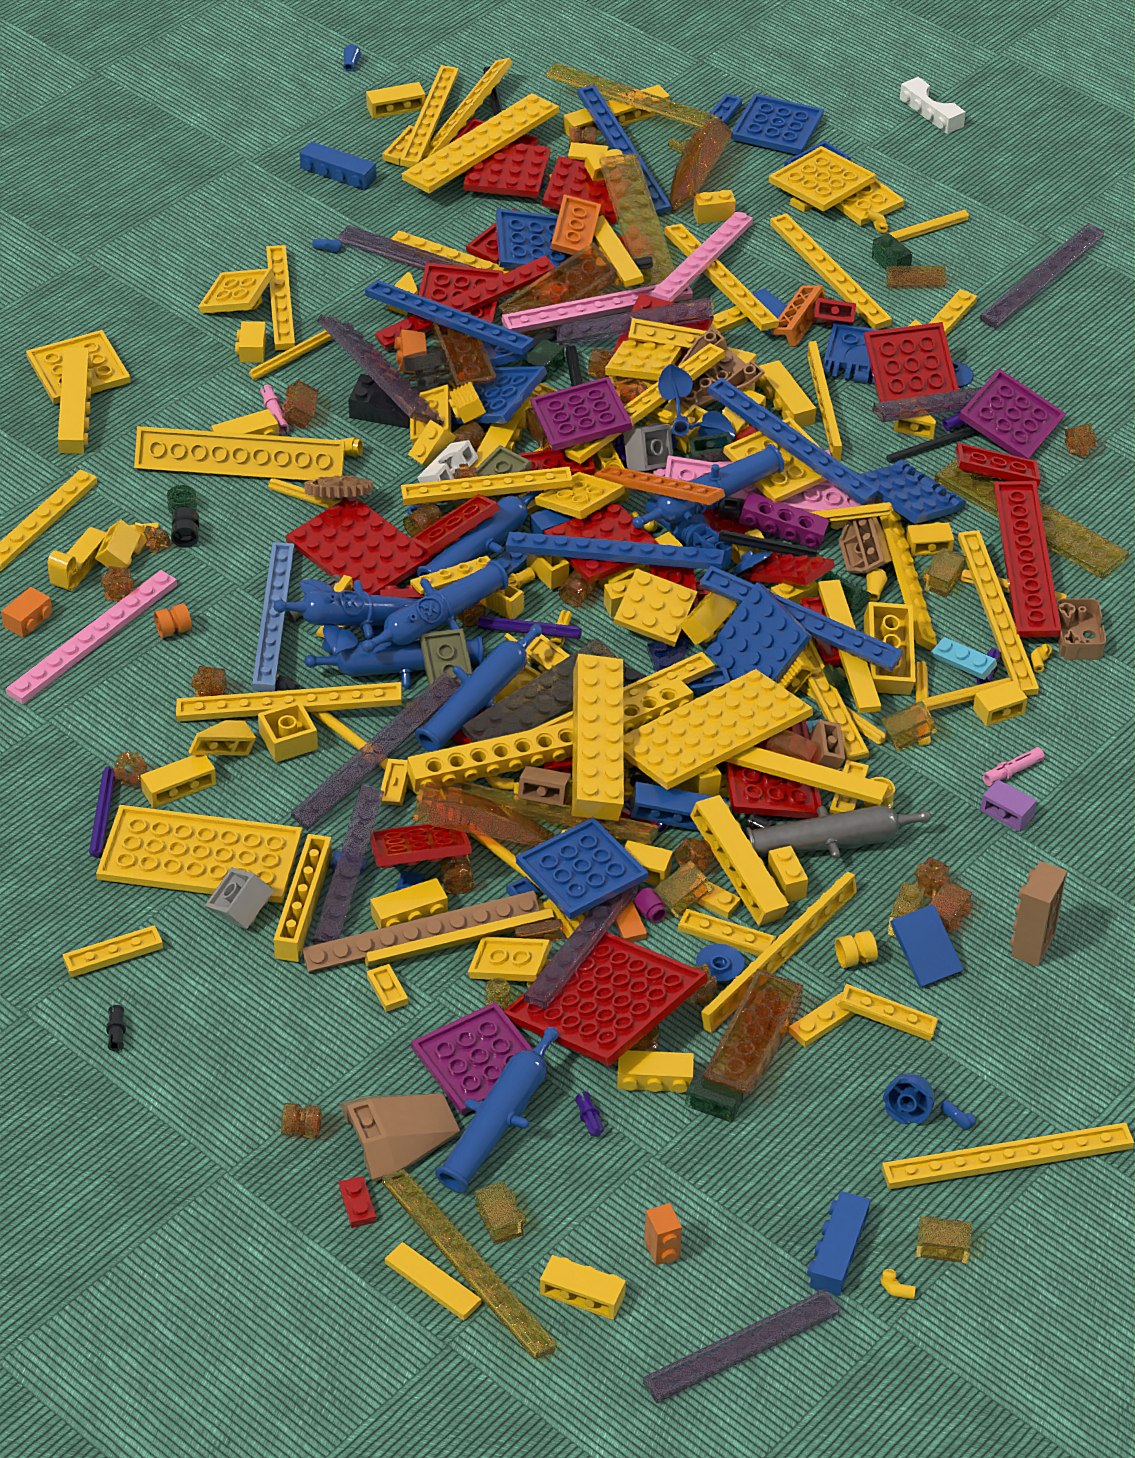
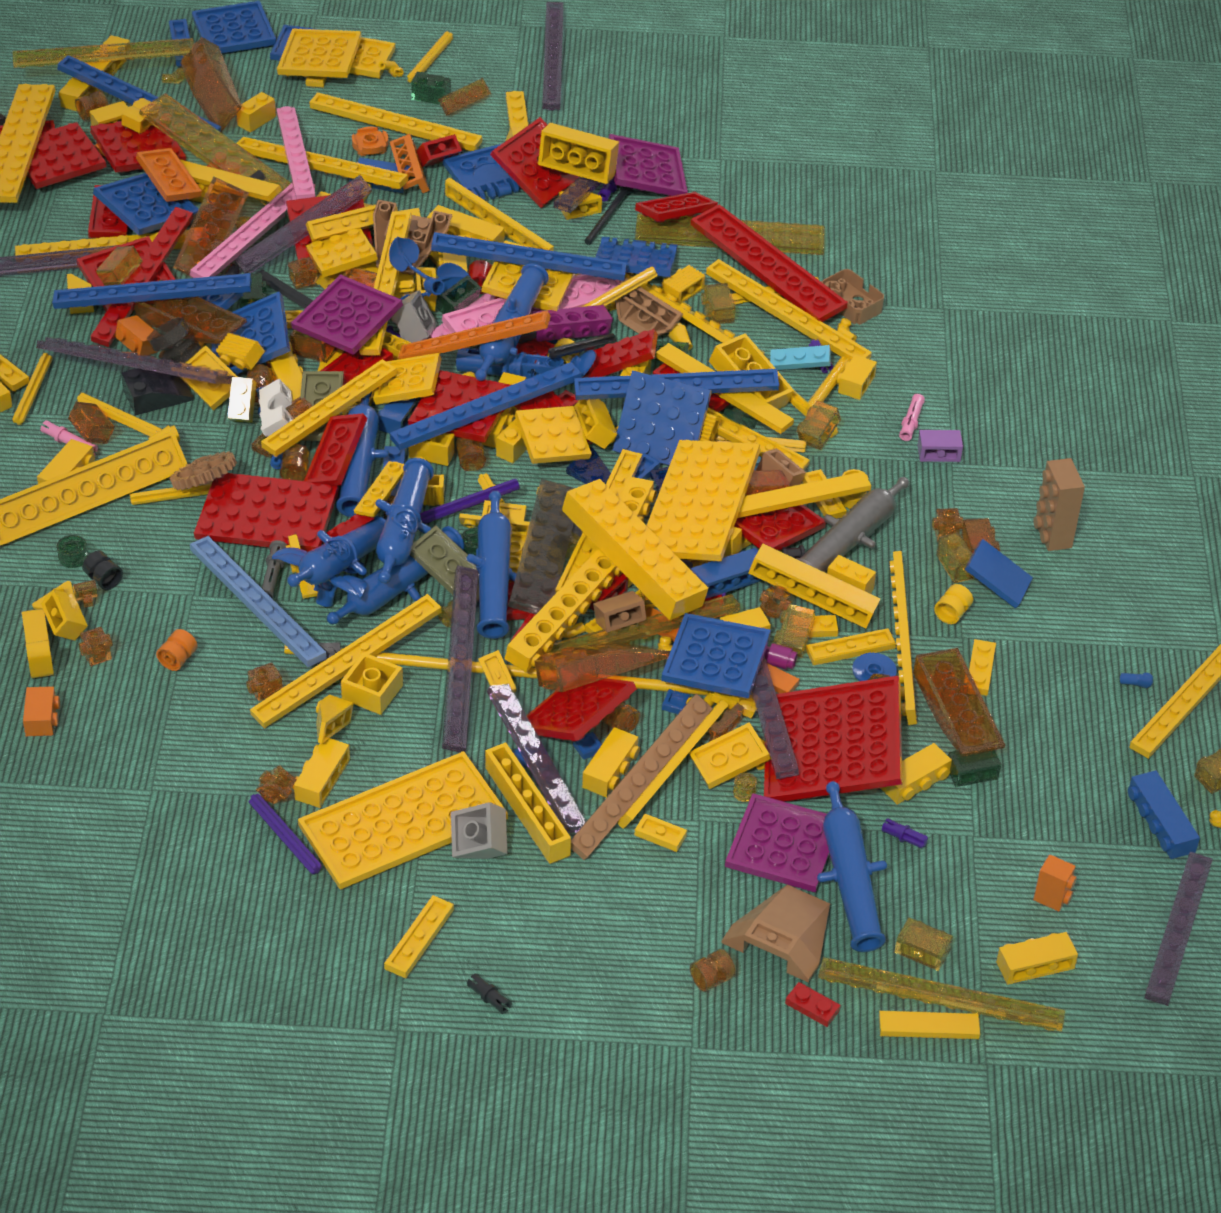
camera: 40 degrees left, 0 degrees up
(91, 637) = (115, 703): bright pink plate -> none
(332, 408) = (121, 416): none -> yellow axle
(447, 284) = (119, 266): none -> clear yellow brick
(780, 277) = (378, 141): none -> orange plate
(888, 1012) = (1019, 636): yellow tile -> none
(909, 1098) = (1102, 685): blue cylinder -> none
(938, 370) = (578, 153): none -> yellow brick
(1080, 439) = (710, 160): clear orange brick -> none

